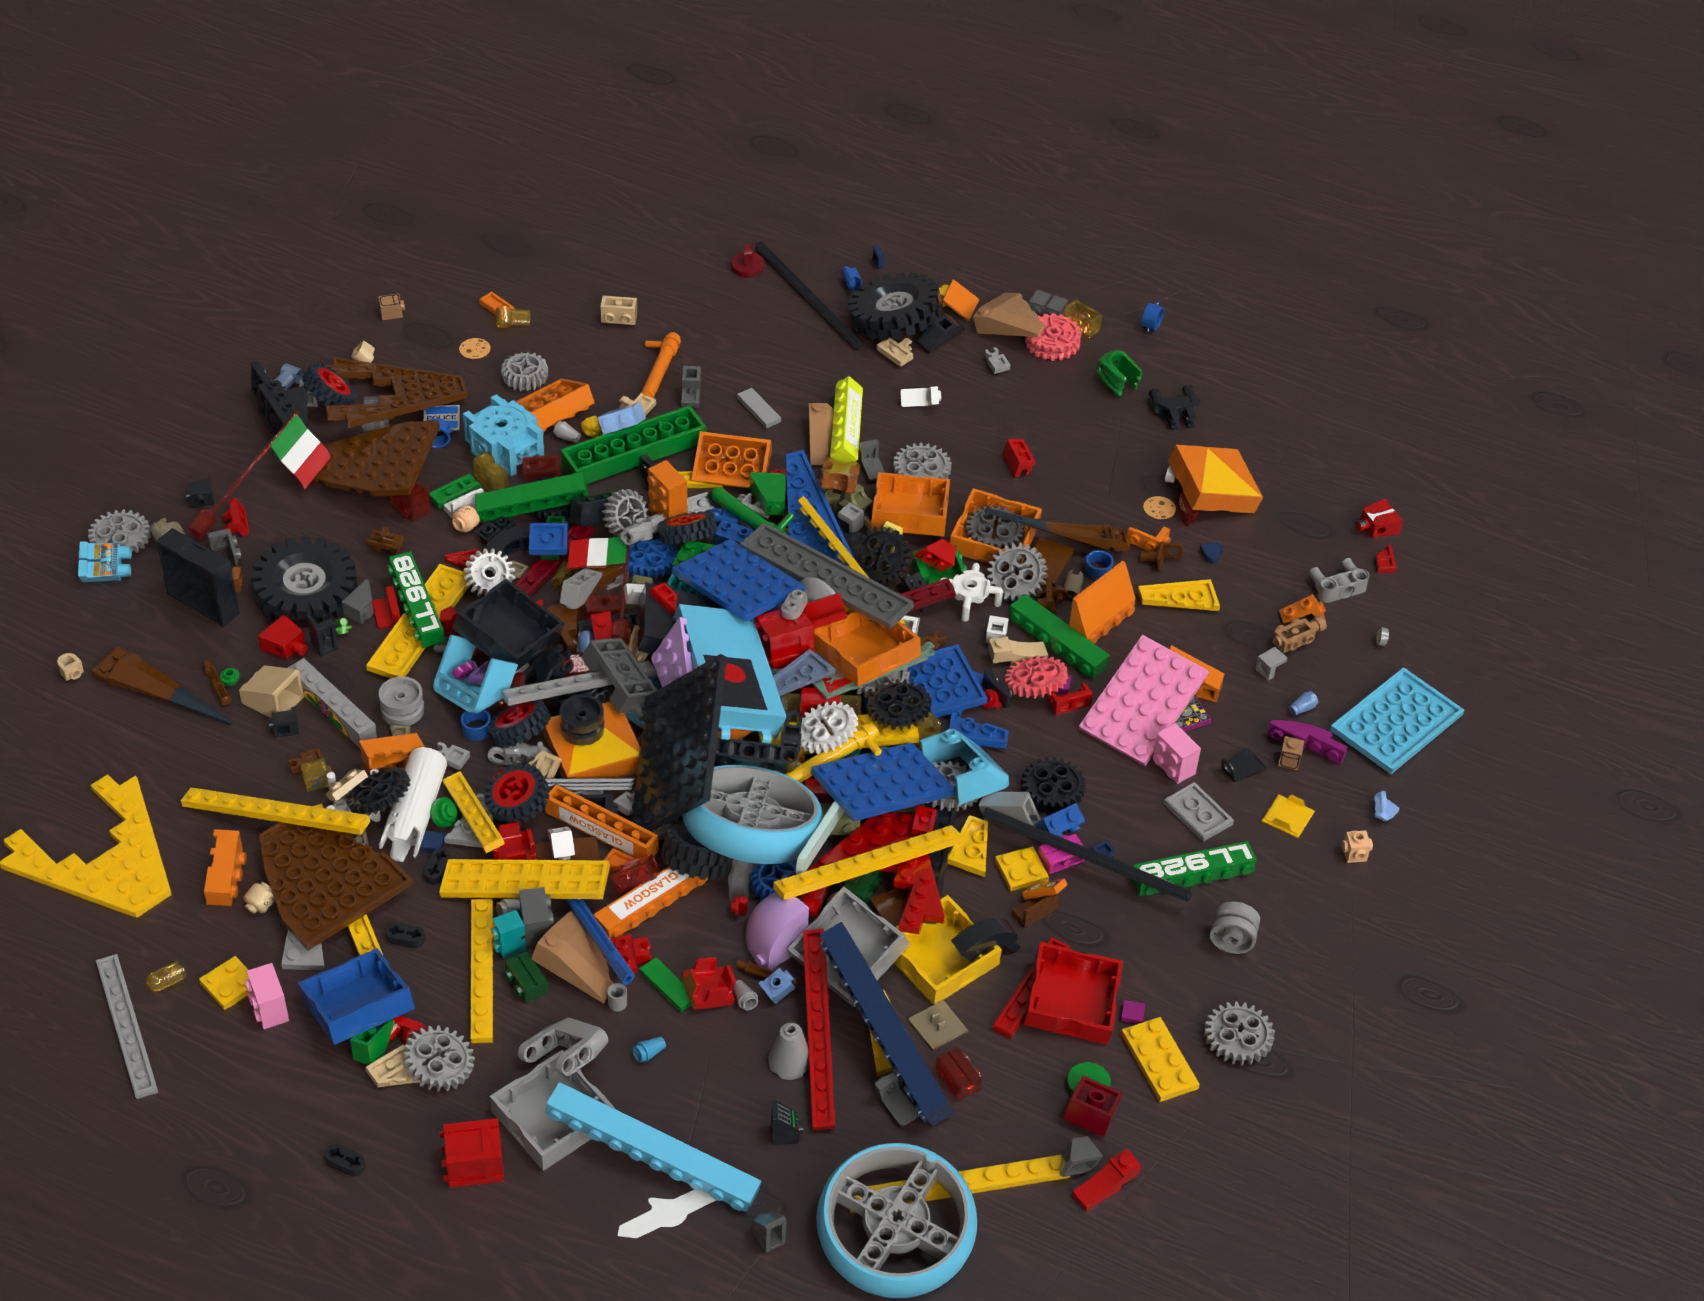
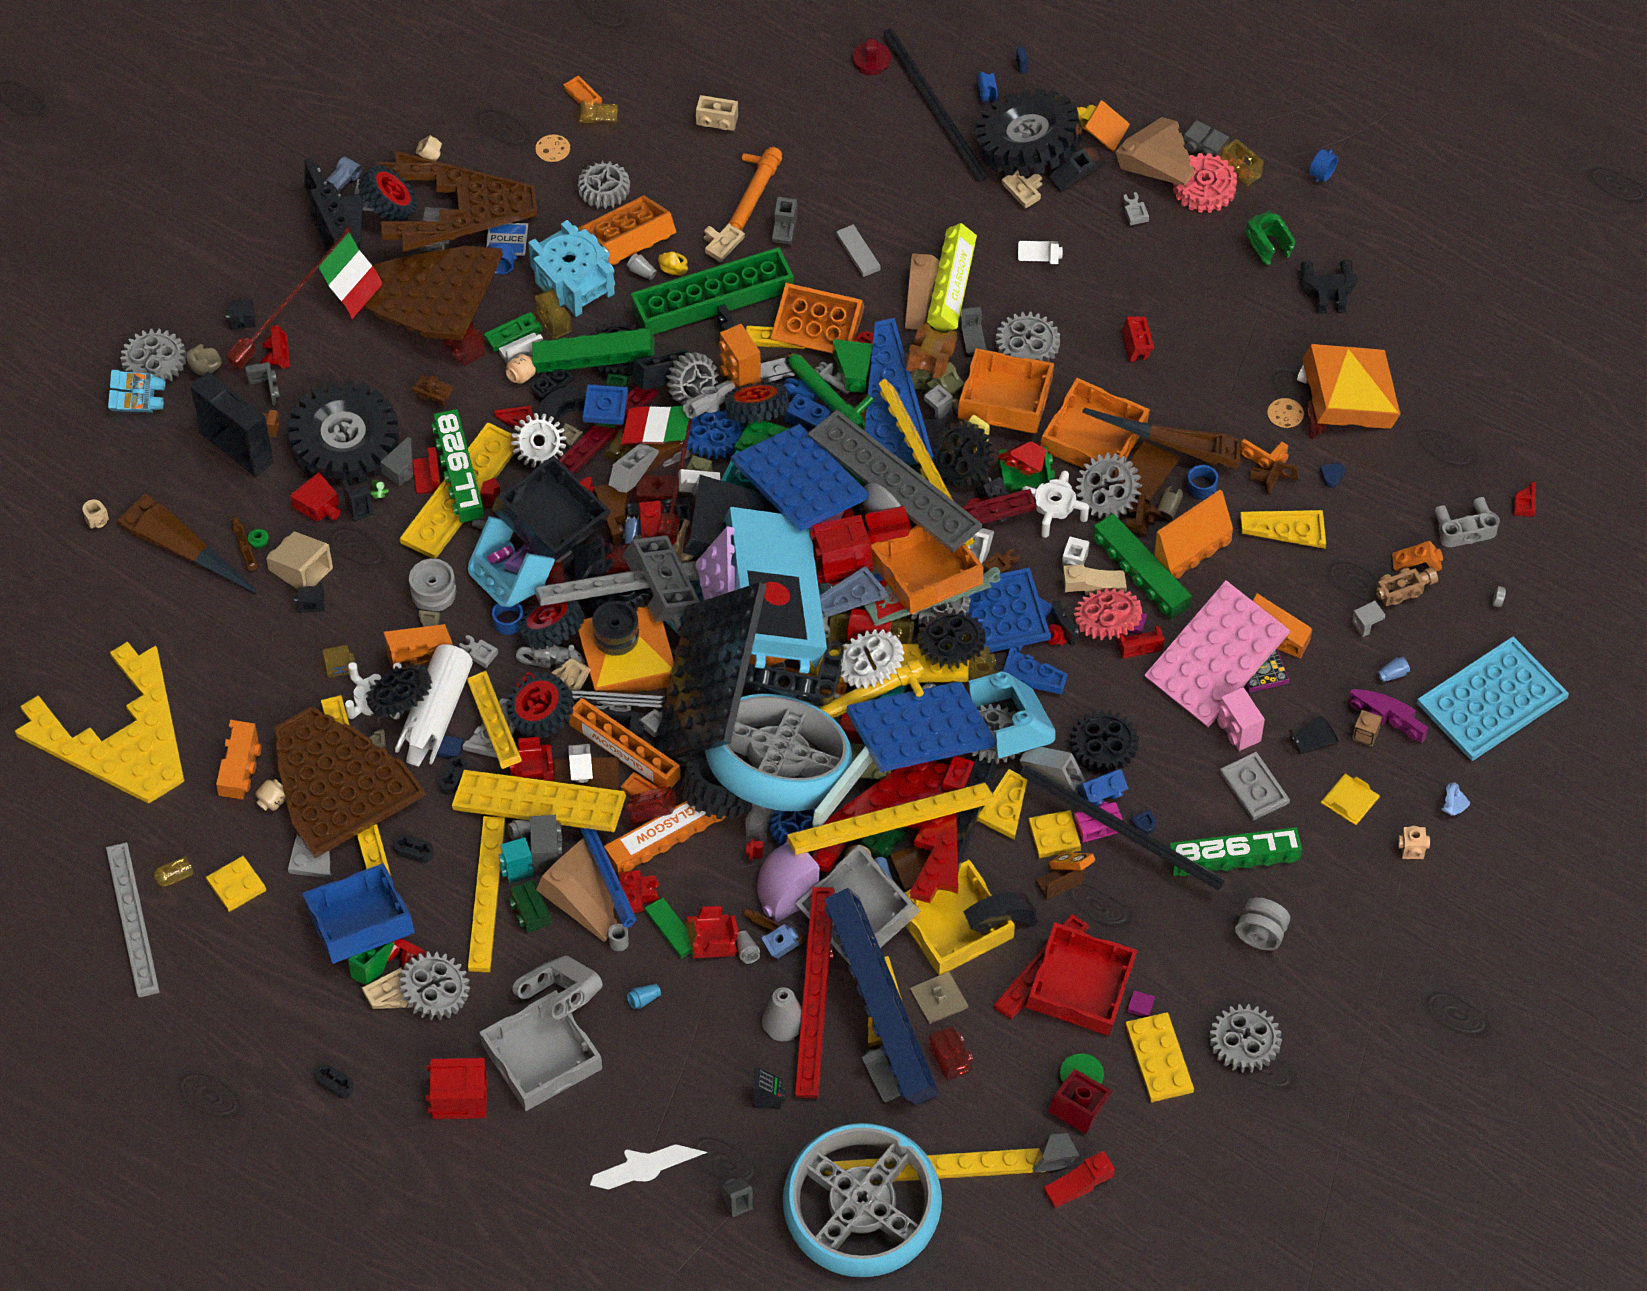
camera: 10 degrees right, 10 degrees up
(266, 996) = (270, 904): bright pink brick -> none
(276, 811) = (293, 702): yellow plate -> none
(307, 756) = (331, 640): reddish brown plate -> none
(334, 704) = (363, 582): light grey brick -> none
(348, 782) = (367, 677): tan wing -> none
(391, 306) = (465, 88): medium nougat brick -> none
(443, 812) = (464, 716): green plate -> none
(541, 465) = (609, 310): clear red brick -> none
(621, 418) = (702, 258): light blue brick -> none
(652, 1147) = (632, 1101): medium azure brick -> none
(665, 597) = (718, 493): red tile -> none
(794, 604) = (854, 515): light grey plate -> none
(980, 528) = (1078, 422): dark grey gear -> none
(1379, 520) = (1528, 451): red torso -> none

